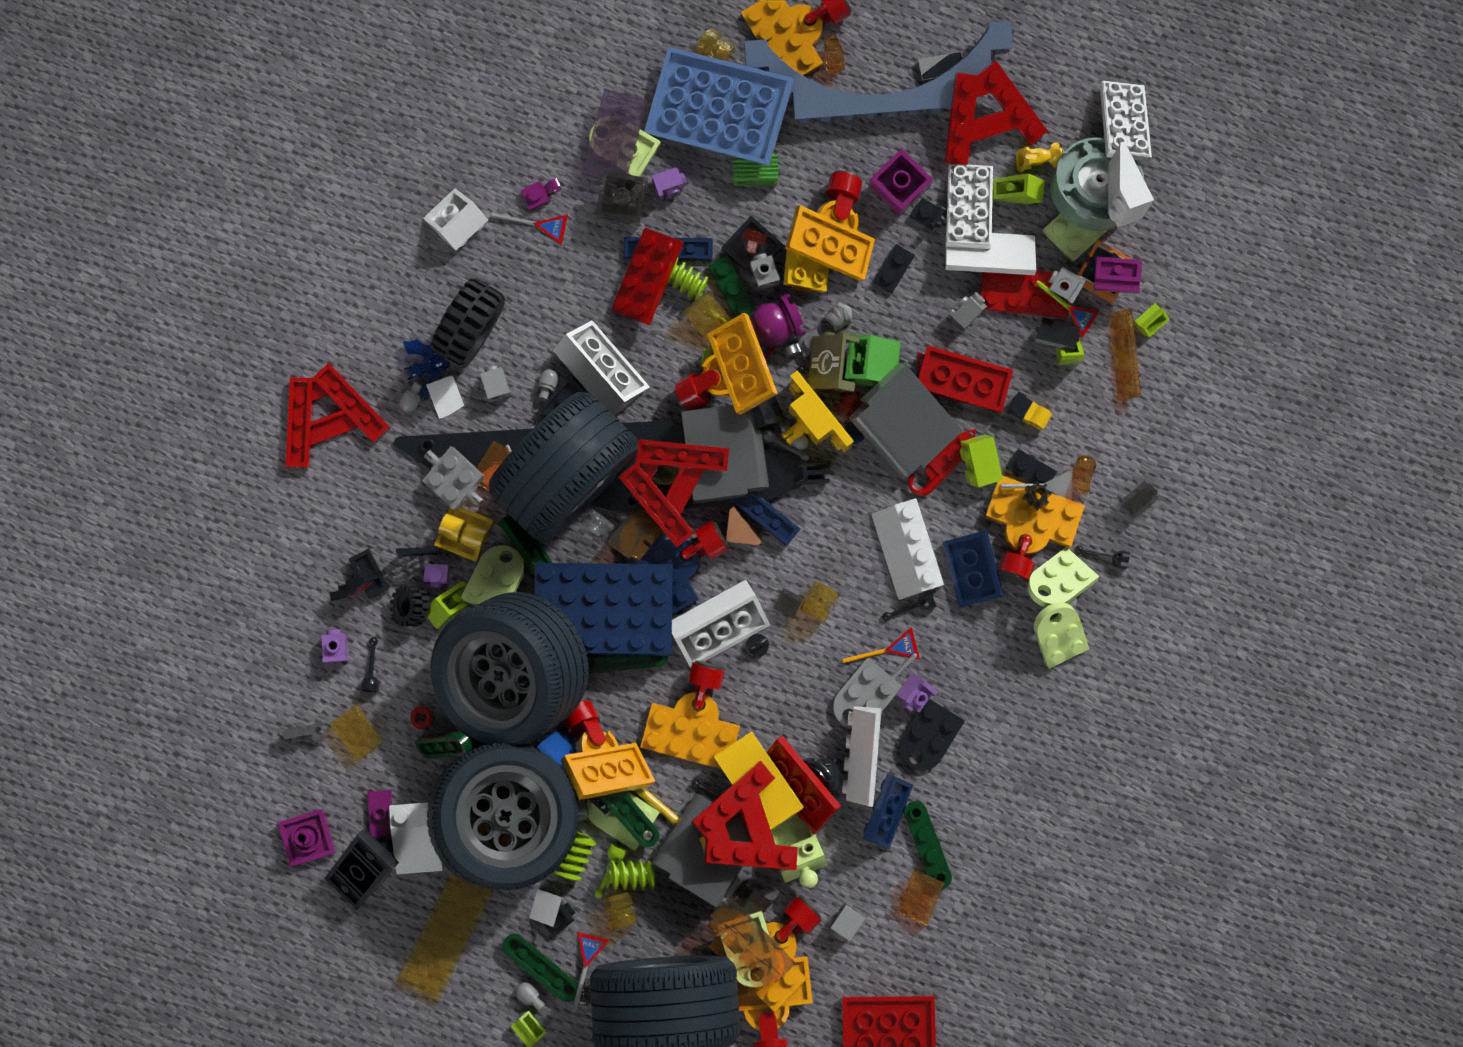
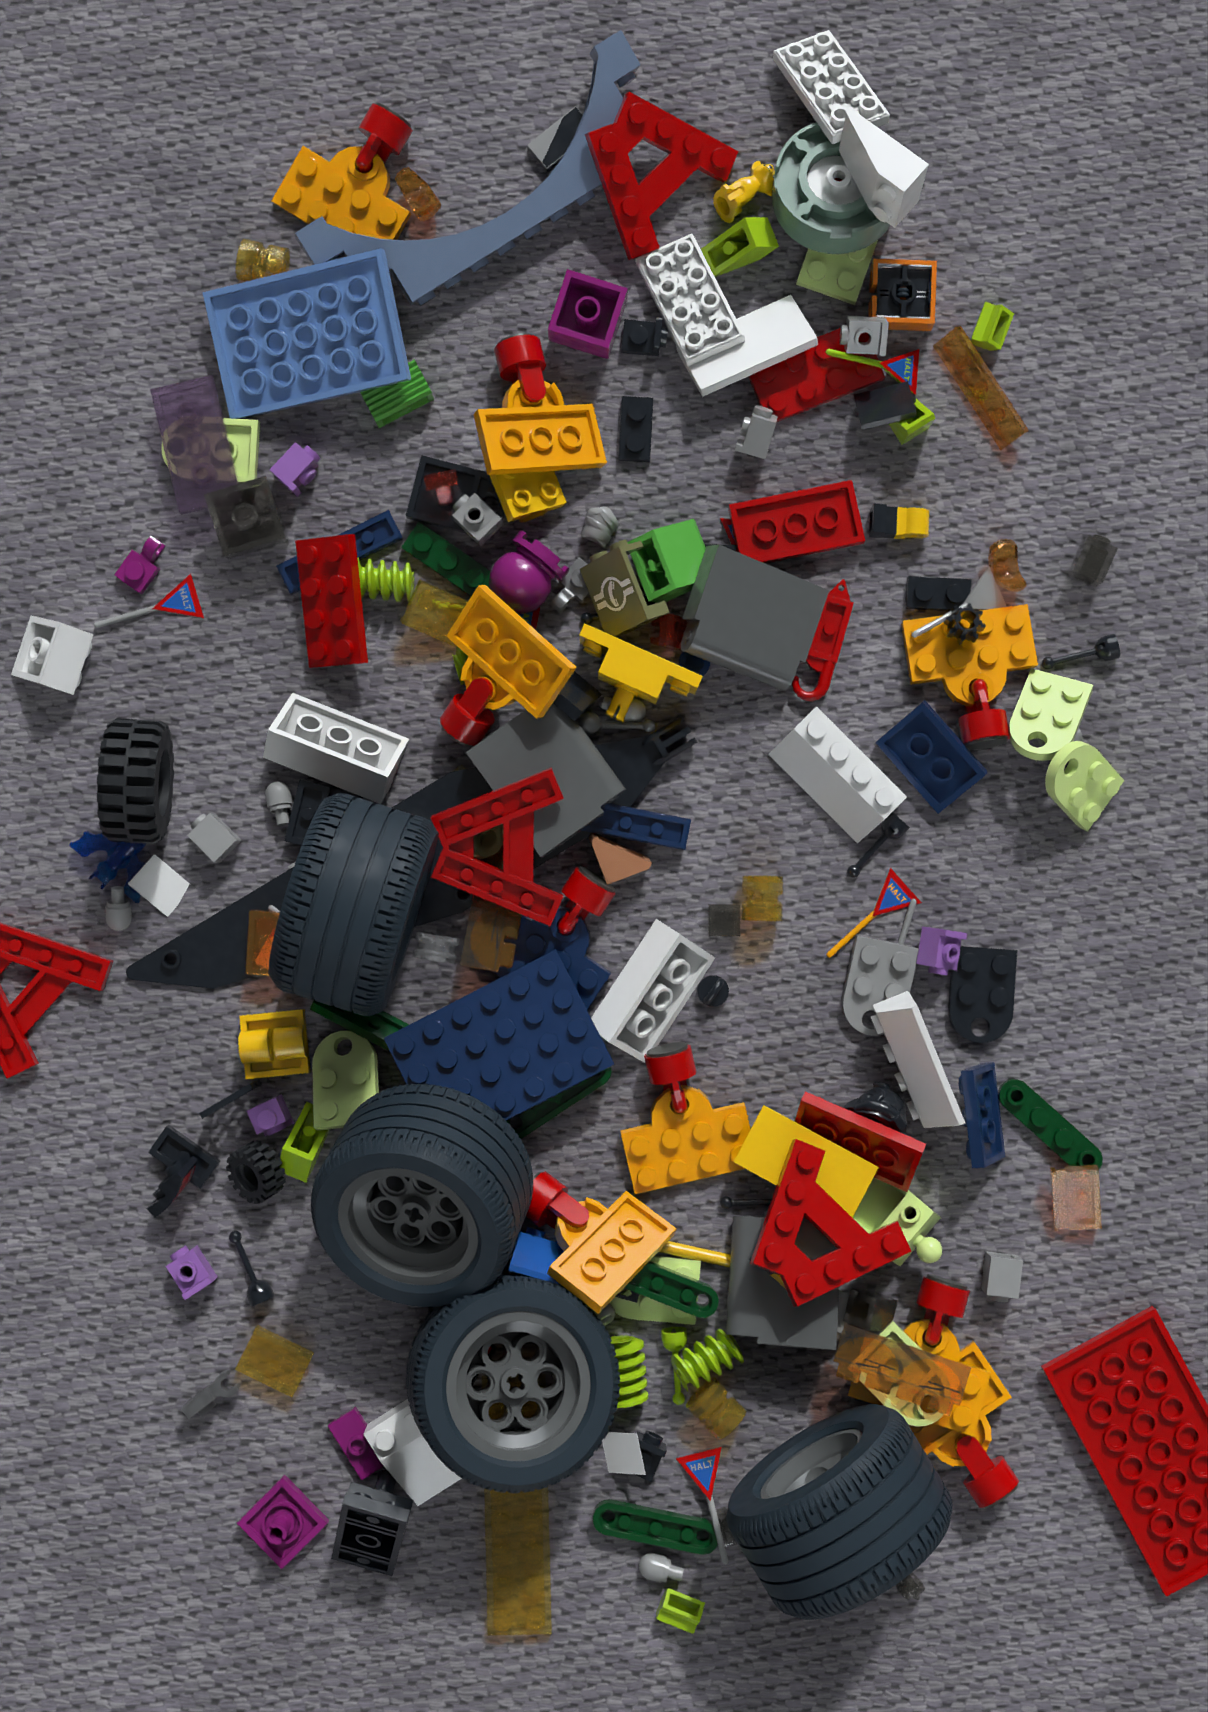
camera: 25 degrees left, 5 degrees up
(414, 717) = (340, 1308): red plate -> none
(444, 745) = (392, 1325): dark green plate -> none
(453, 478) = (225, 984): light grey plate -> none
(981, 460) = (872, 616): lime brick -> none
(1117, 275) = (923, 289): magenta plate -> none

